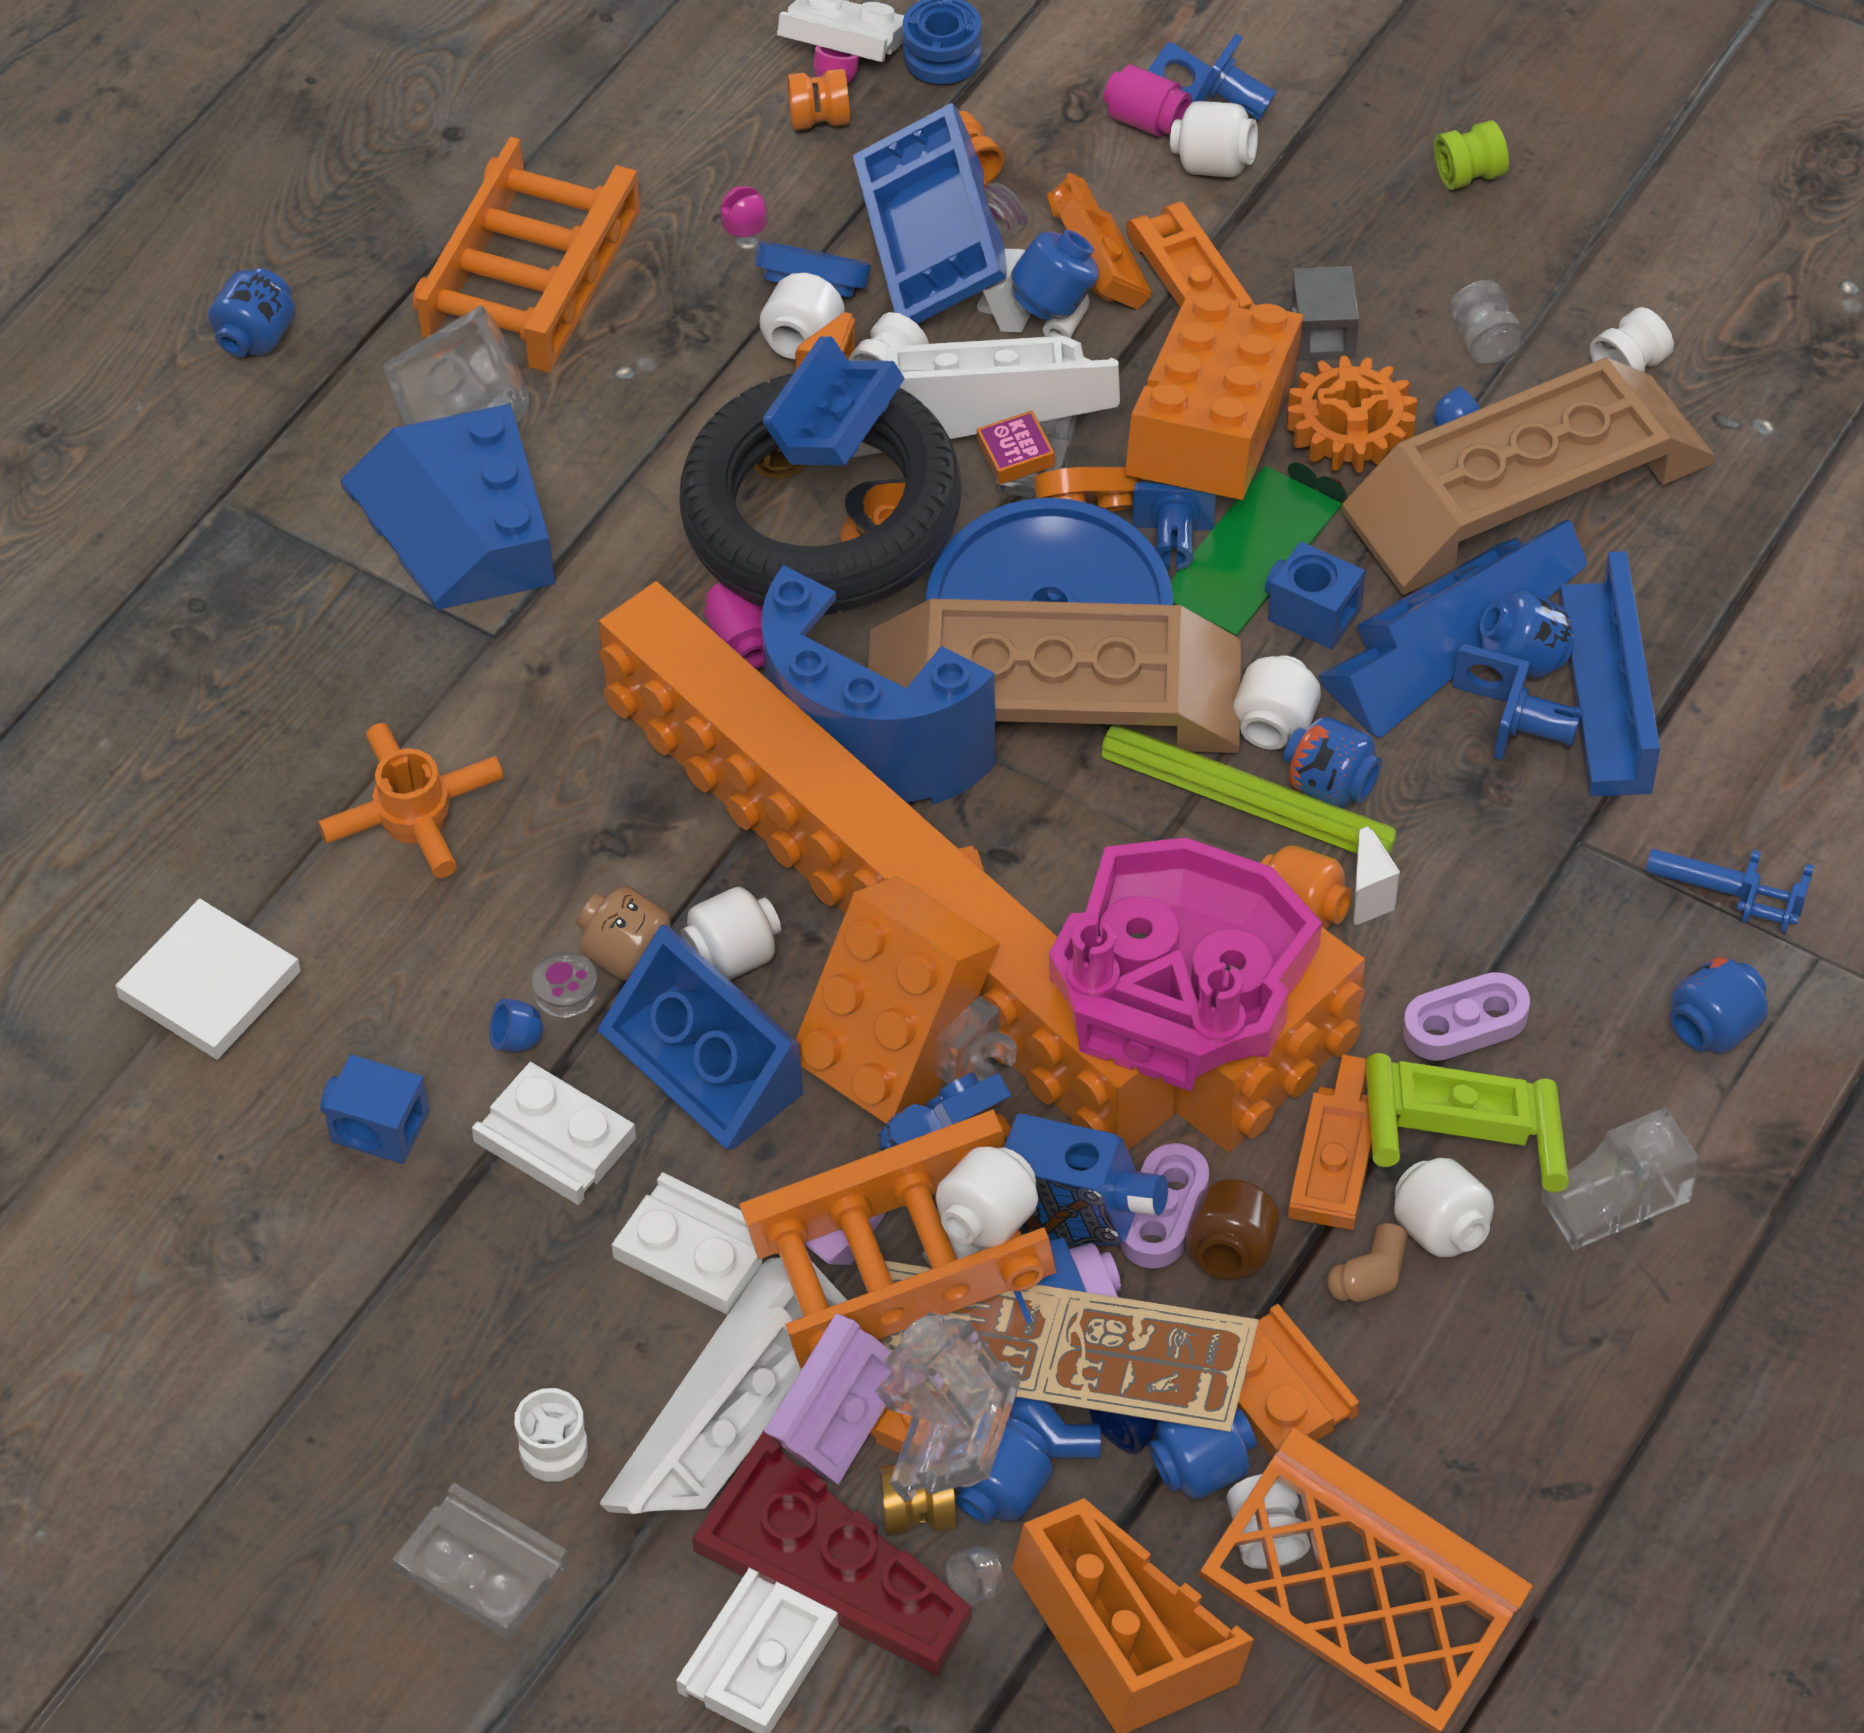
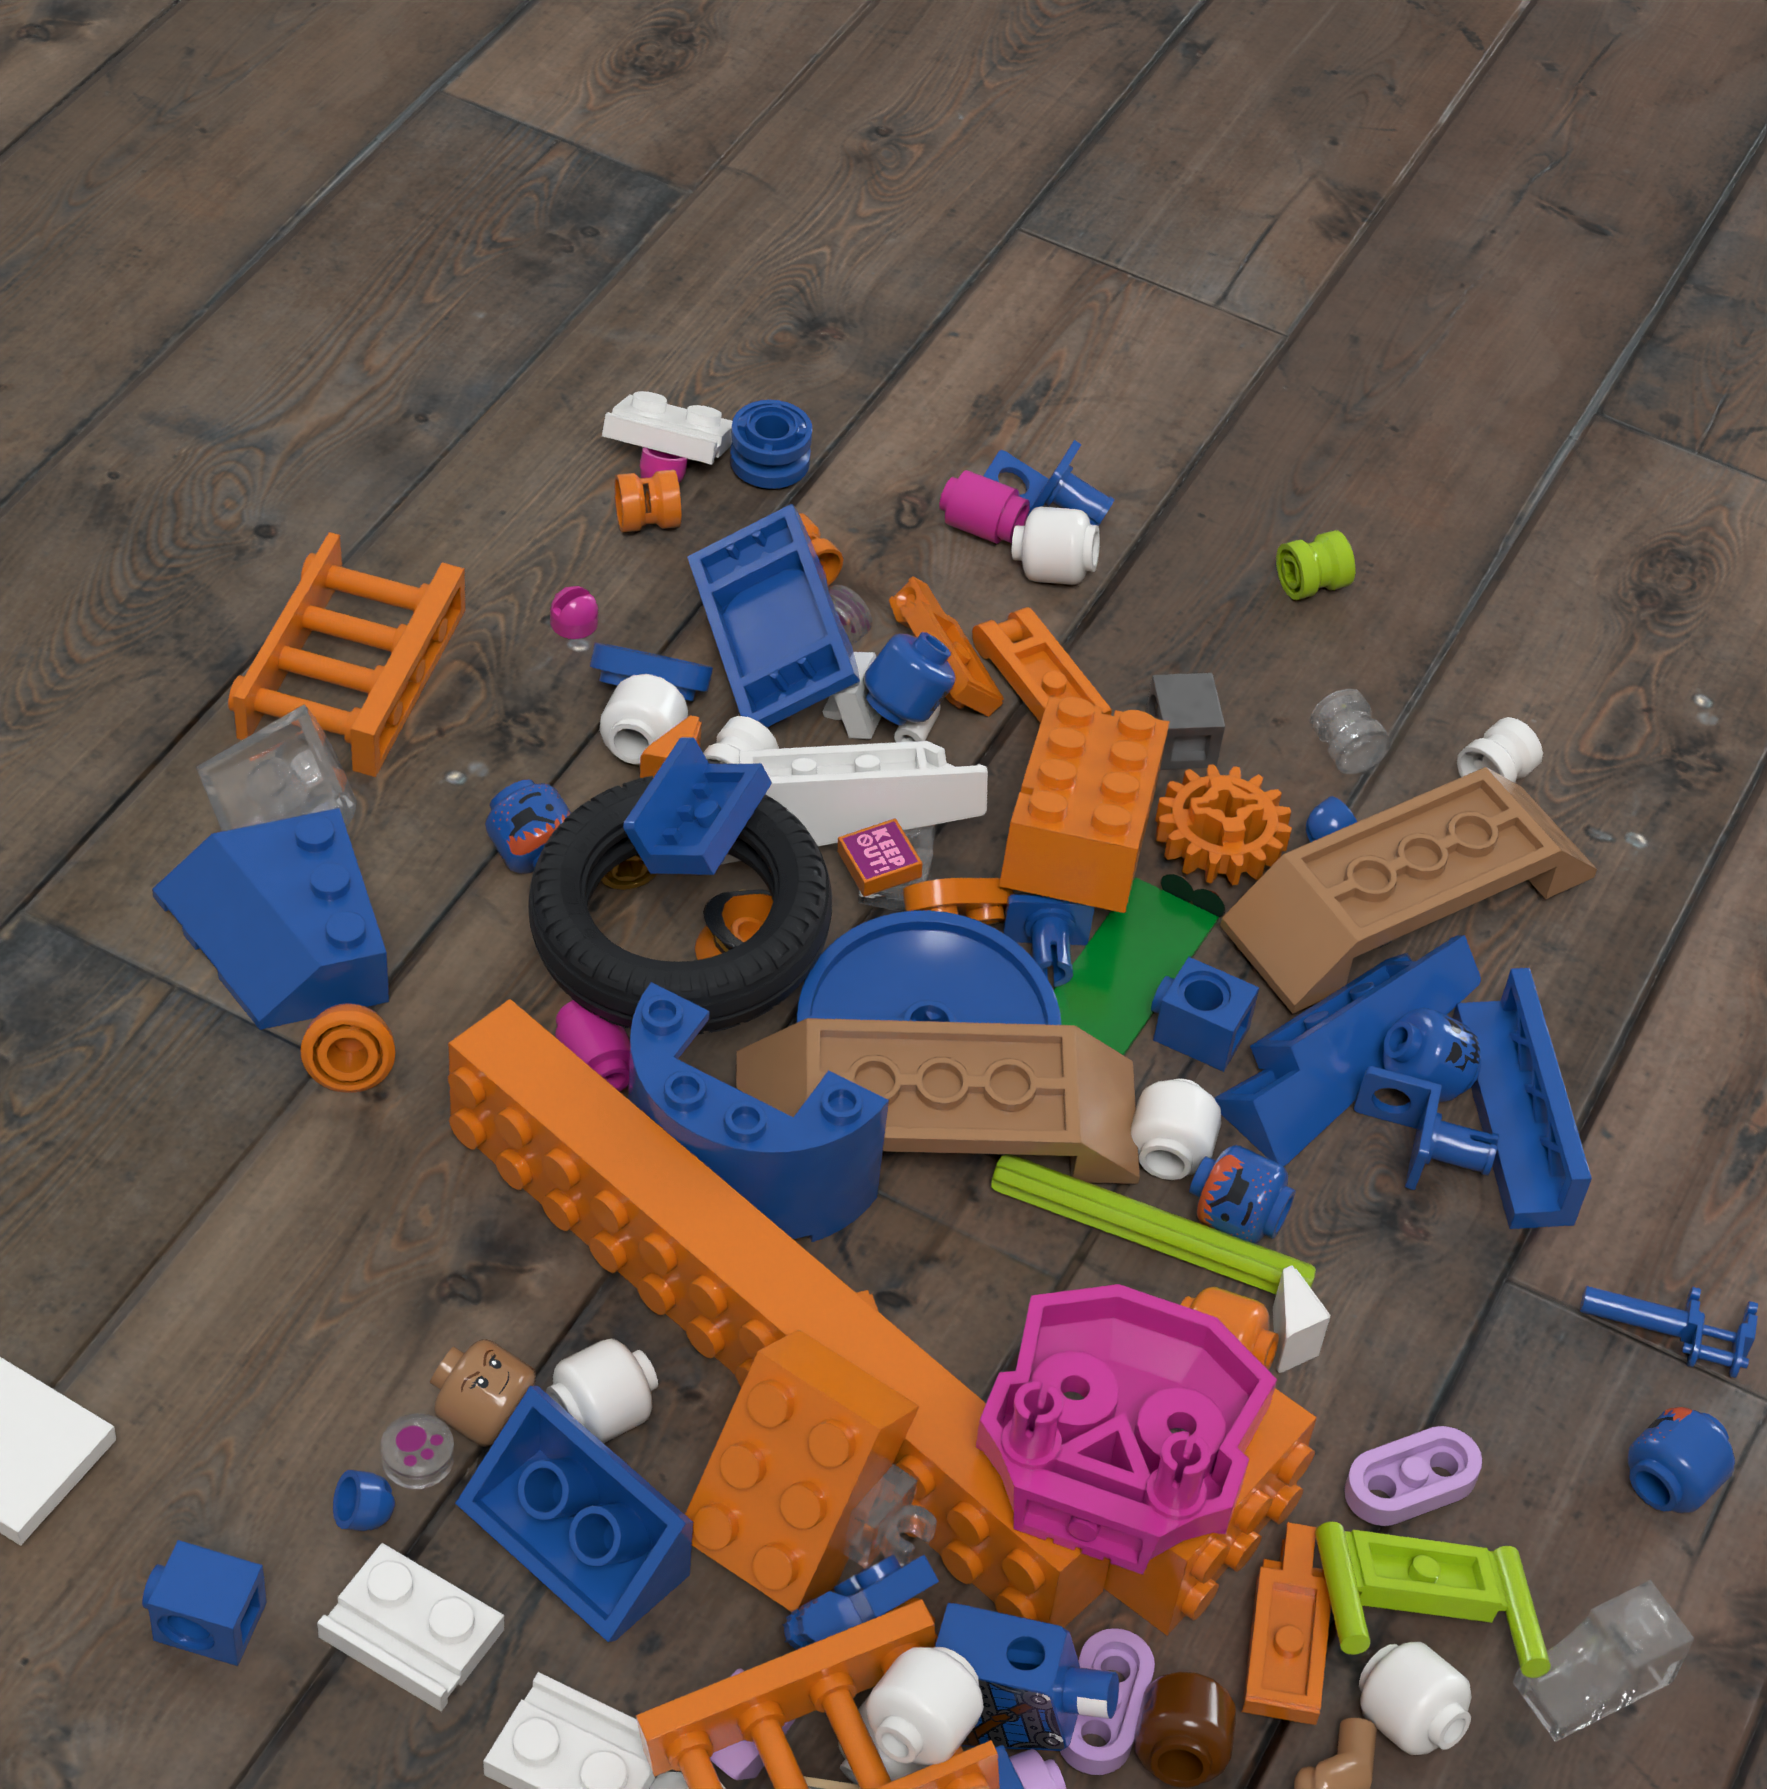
camera: 10 degrees left, 5 degrees down
(251, 312) = (54, 708): blue head -> none
(411, 799) = (238, 1241): orange bar -> none
(513, 627) = (348, 1048): none -> orange brick
(681, 412) = (523, 821): none -> blue head

